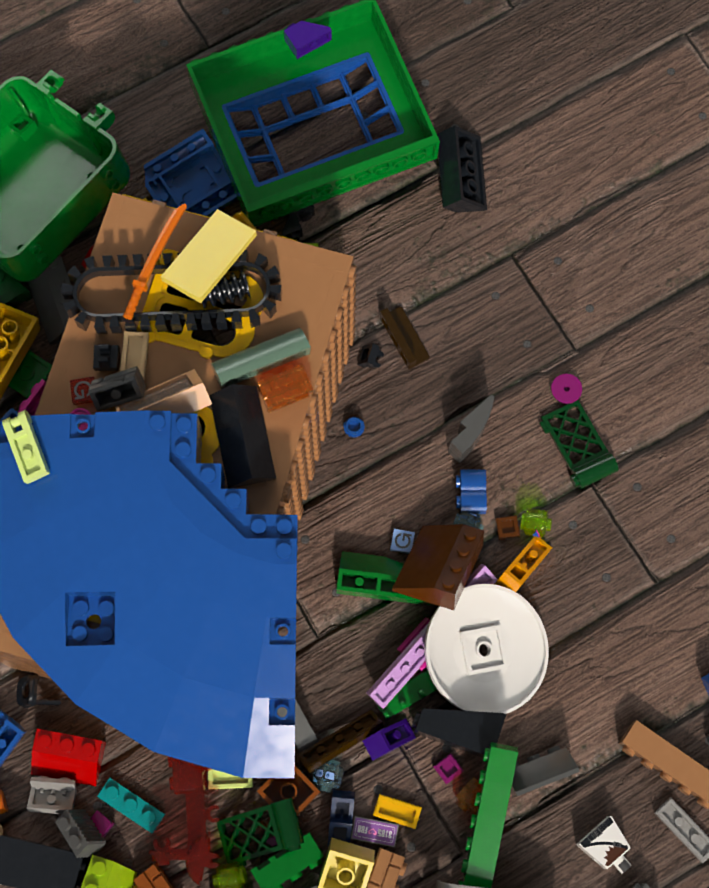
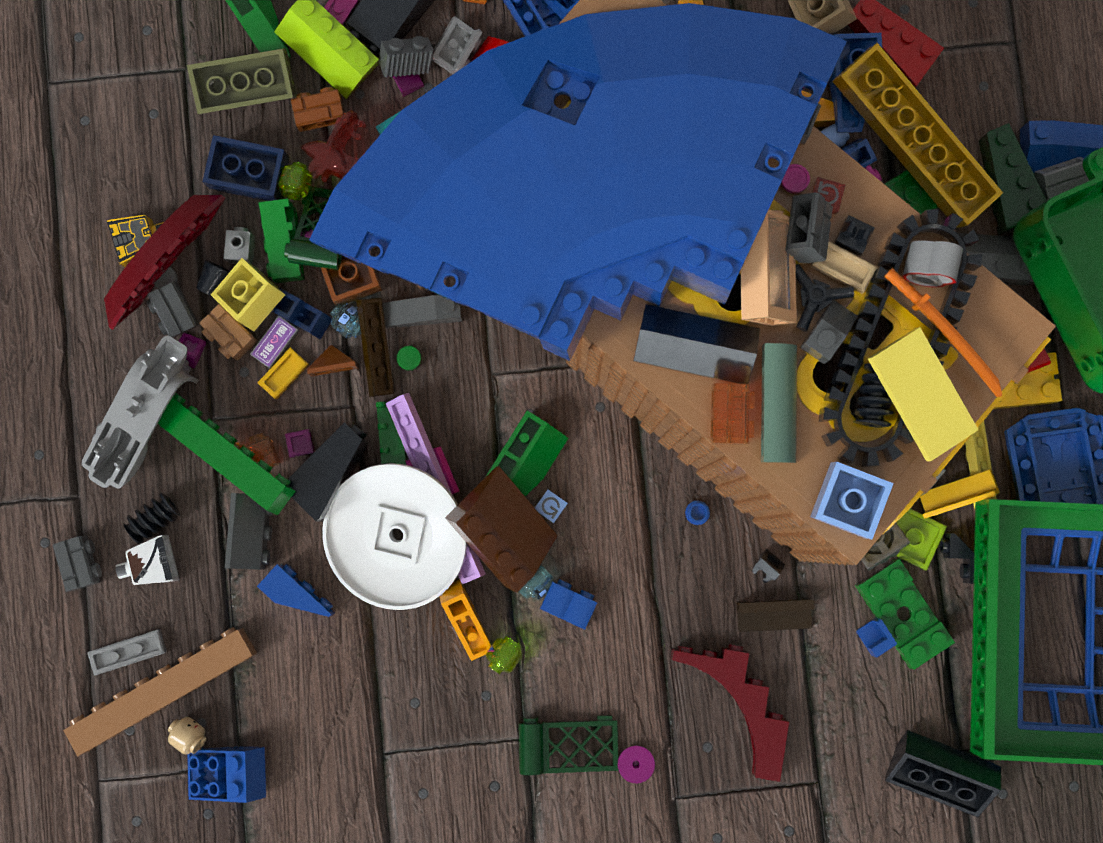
camera: 120 degrees right, 10 degrees up
(26, 447) = (777, 92): yellowish green plate -> none
(105, 290) = (932, 263): none -> light grey piece
(166, 363) = (816, 296): none -> black piece
(190, 343) = (829, 332): none -> dark grey slope
(309, 275) = (851, 500): none -> light blue brick
(336, 710) = (409, 358): none -> green tile
(368, 774) = (330, 362): none -> dark orange slope
(369, 228) = (919, 635): none -> green piece
(385, 257) = (876, 637): none -> blue panel
(389, 739) = (354, 396): dark purple slope -> none
(471, 430) = (634, 635): dark grey slope -> none
(494, 305) = (766, 732): none -> dark red arch
(507, 527) = (514, 624): reddish brown tile -> none
(569, 862) = (151, 519): none -> black piece
(571, 717) = (287, 590): none -> blue slope

